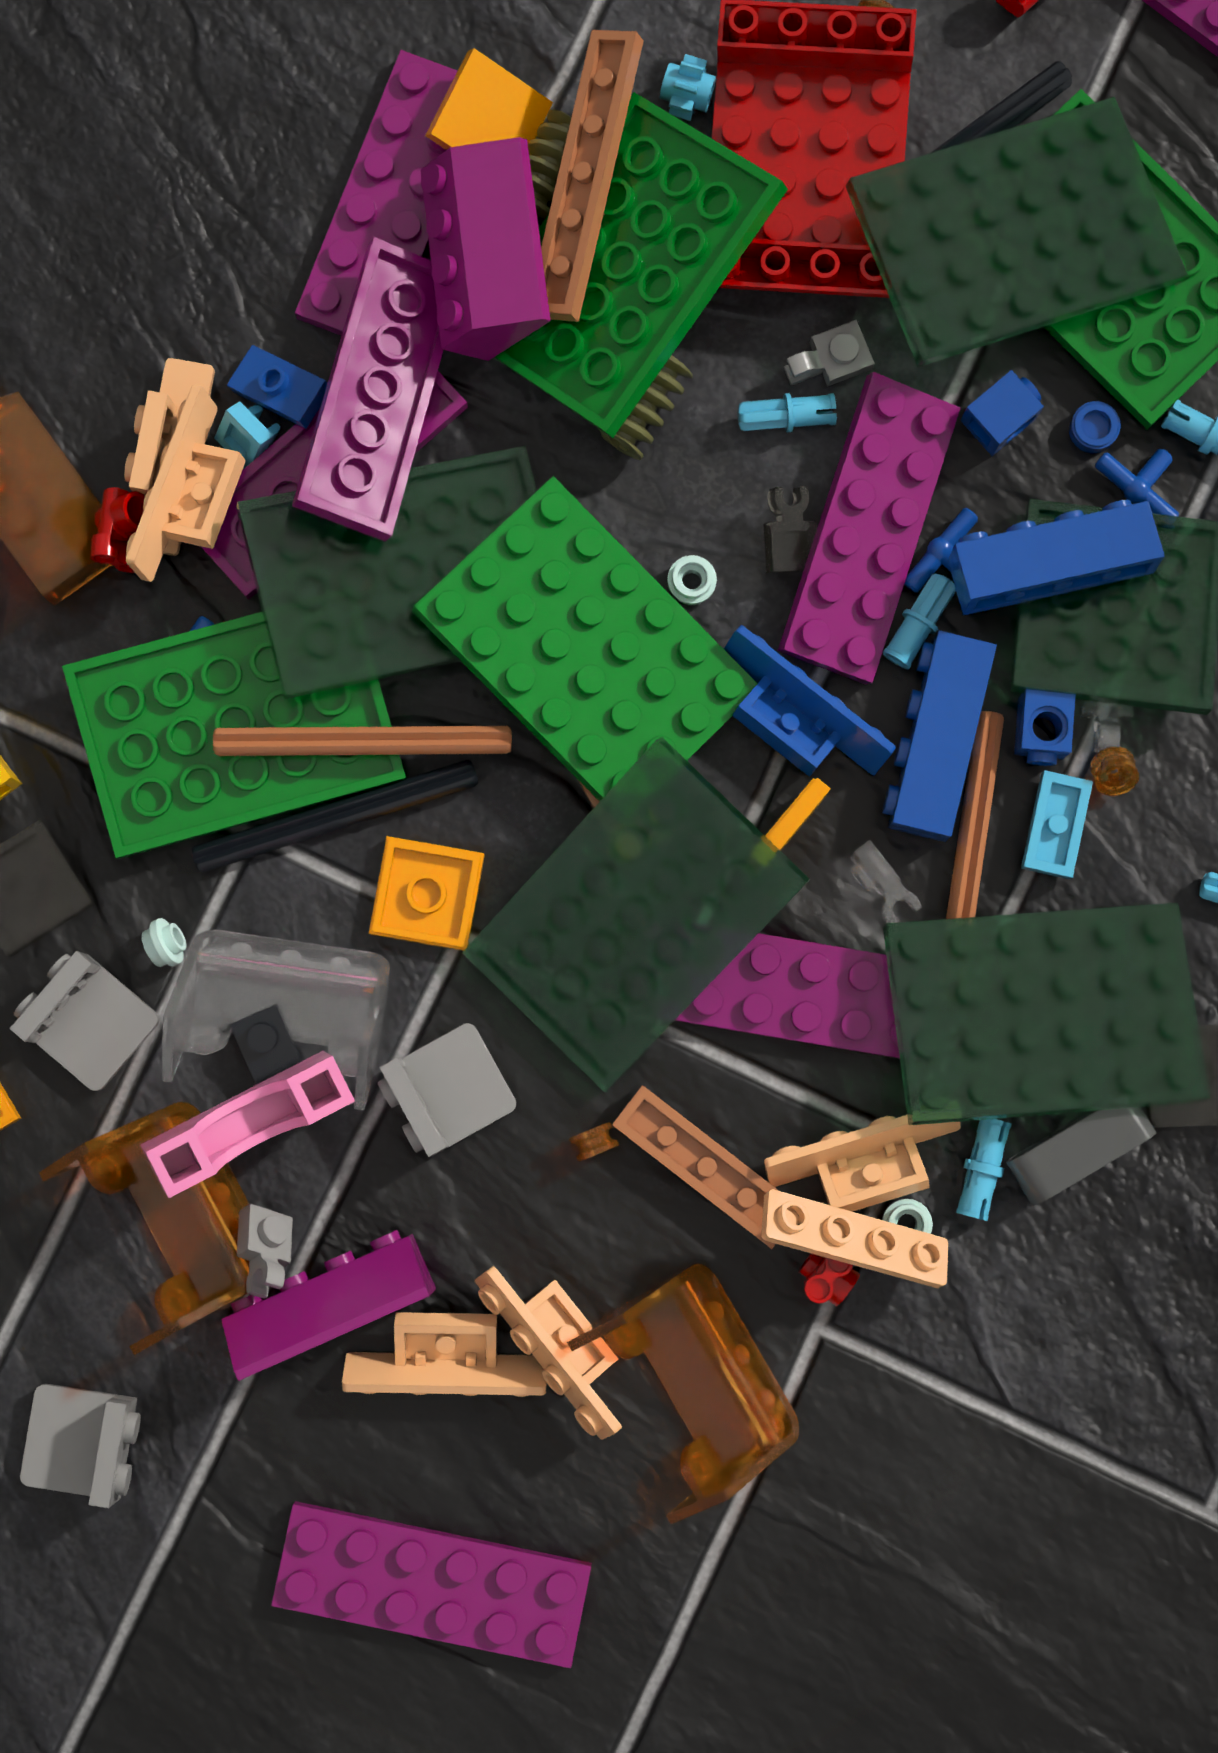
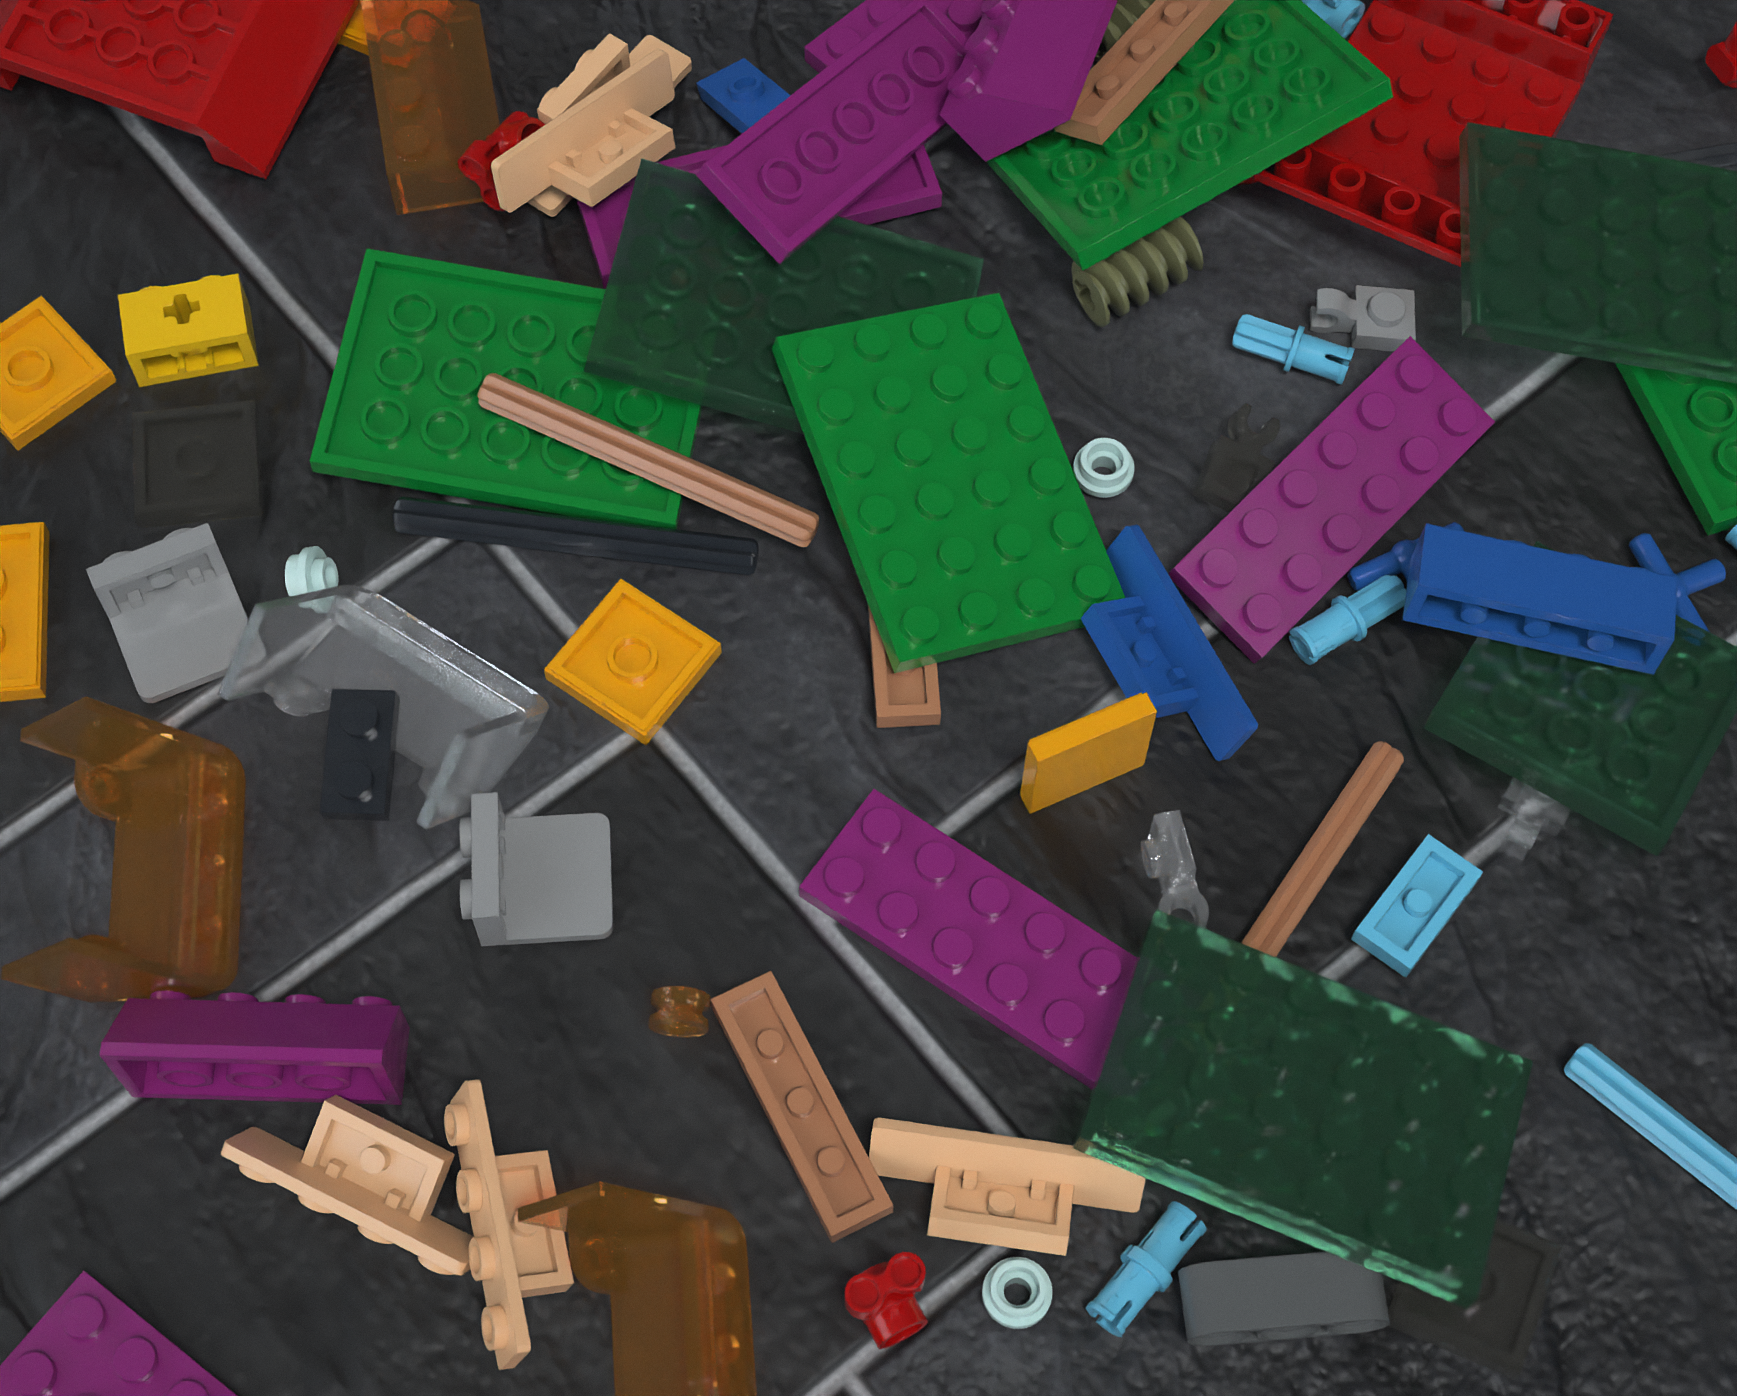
camera: 25 degrees right, 20 degrees down
(244, 432) = (692, 124): medium azure tile -> none
(255, 1115) = (245, 782): bright pink arch -> none
(266, 1243) = (230, 942): light grey plate -> none
(635, 914) = (857, 761): clear green plate -> none
(854, 1238) = (955, 1270): light nougat bracket -> none
(940, 737) = (1316, 746): blue brick -> none
(1003, 412) = (1542, 443): blue brick -> none
(1056, 708) = (1456, 764): blue brick -> none
(1094, 427) = (1645, 507): blue tile -> none
(1109, 760) = (1514, 894): clear orange bush -> none

